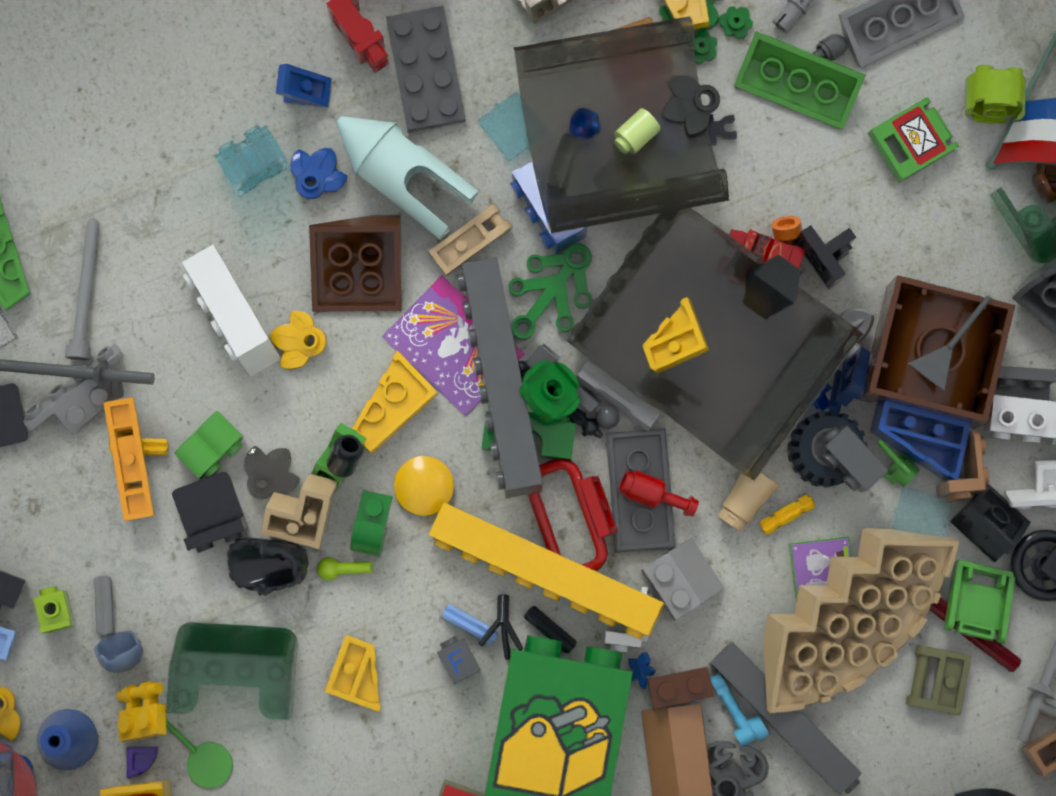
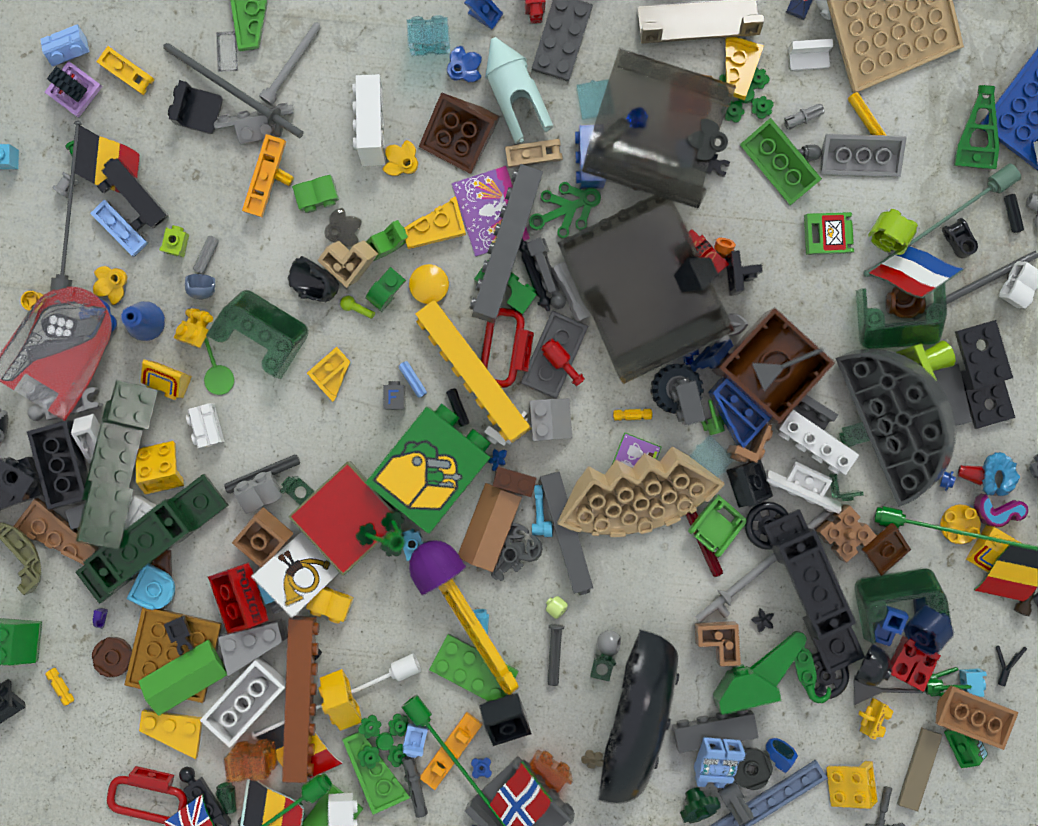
camera: 30 degrees right, 5 degrees up
(140, 760) = (180, 355): dark purple tile -> none
(209, 511) = (295, 232): black bracket -> none
(344, 456) = (389, 240): black brick -> none
(503, 621) = (432, 387): black plant -> none
(540, 400) = (521, 266): green plate -> none
(636, 132) = (665, 139): yellowish green brick -> none
(676, 339) = (623, 276): yellow wing -> none
(746, 499) = (612, 393): tan plant -> none
(948, 682) = (673, 562): olive plate -> none

